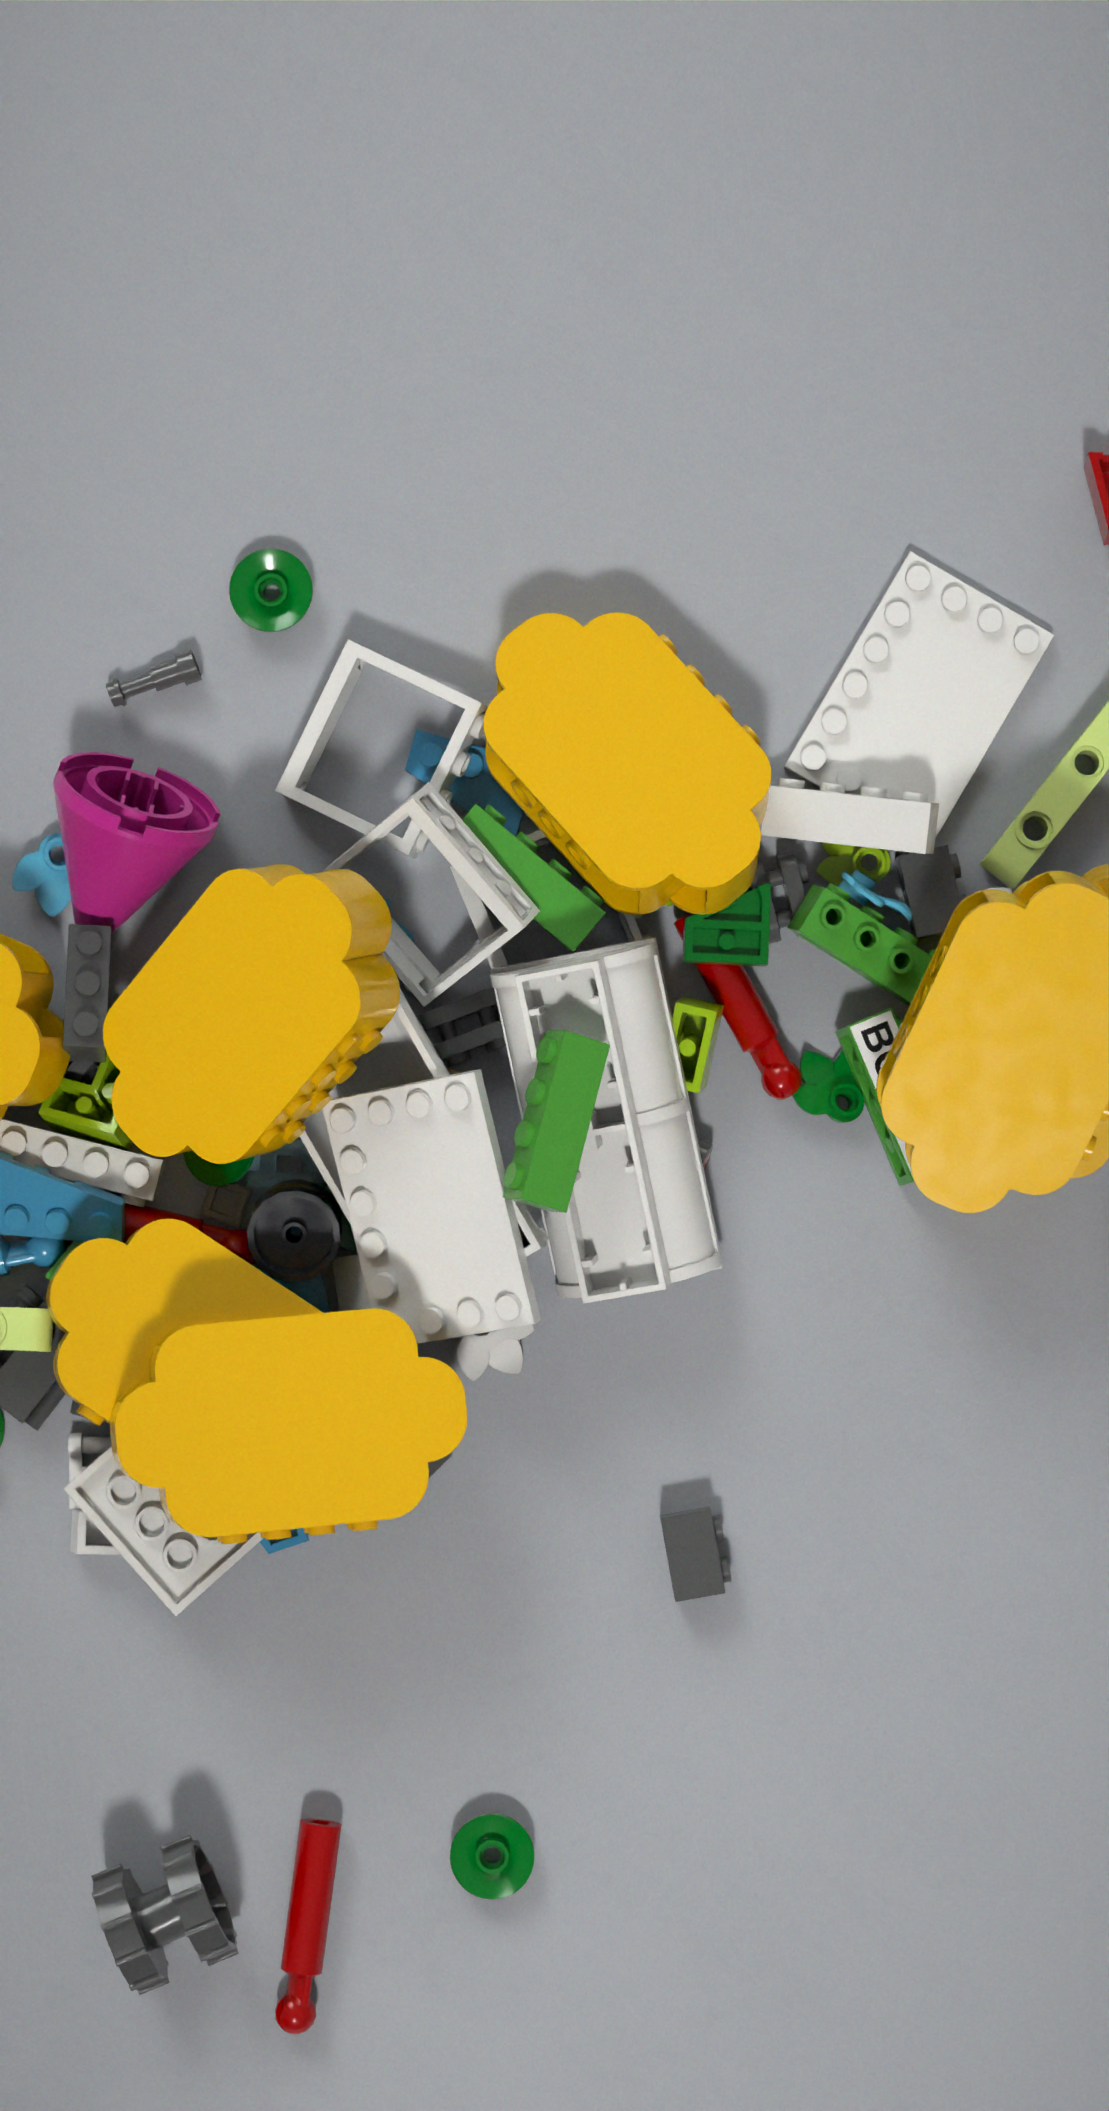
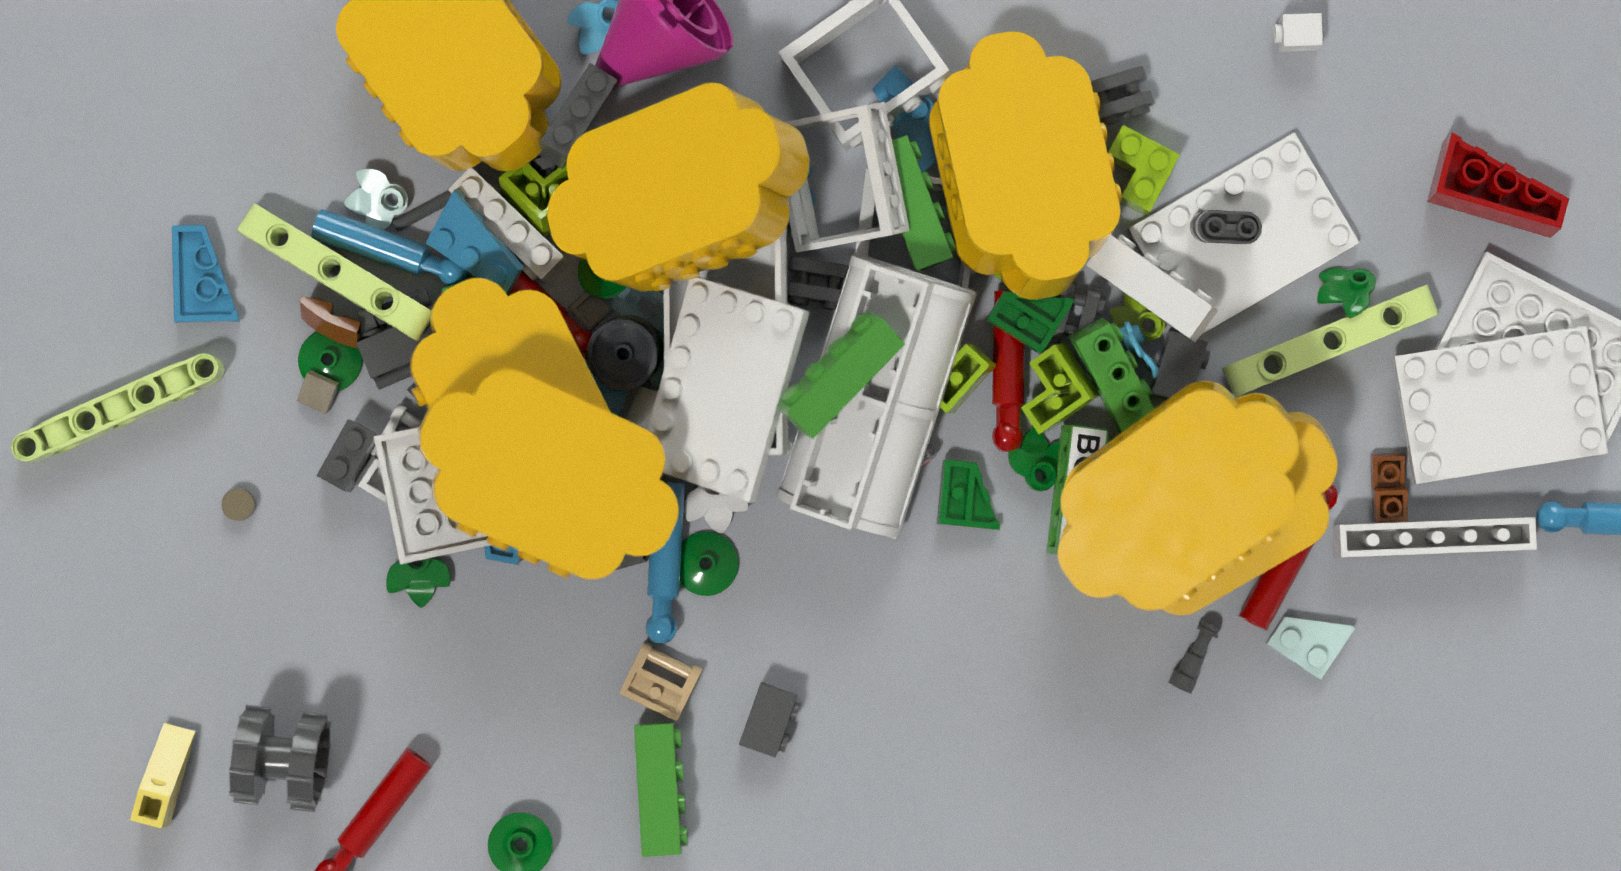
camera: 30 degrees right, 0 degrees up
(42, 2011) = (163, 777): none -> light yellow slope
(46, 1525) = (348, 456): none -> dark grey brick
(205, 1621) = (418, 579): none -> green plate
(485, 1460) = (665, 577): none -> dark azure piece
(515, 1394) = (723, 560): none -> green dish
(548, 1593) = (656, 691): none -> tan plate
(613, 1703) = (659, 790): none -> bright green brick
(714, 619) = (1136, 103): none -> dark grey brick
(768, 681) = (1149, 167): none -> lime brick
(771, 1175) = (963, 497): none -> green wing
(816, 985) = (1066, 388): none -> lime brick
(851, 435) = (1298, 32): none -> white brick
(894, 703) = (1226, 227): none -> dark grey brick
(1065, 697) = (1343, 287): none -> green plate

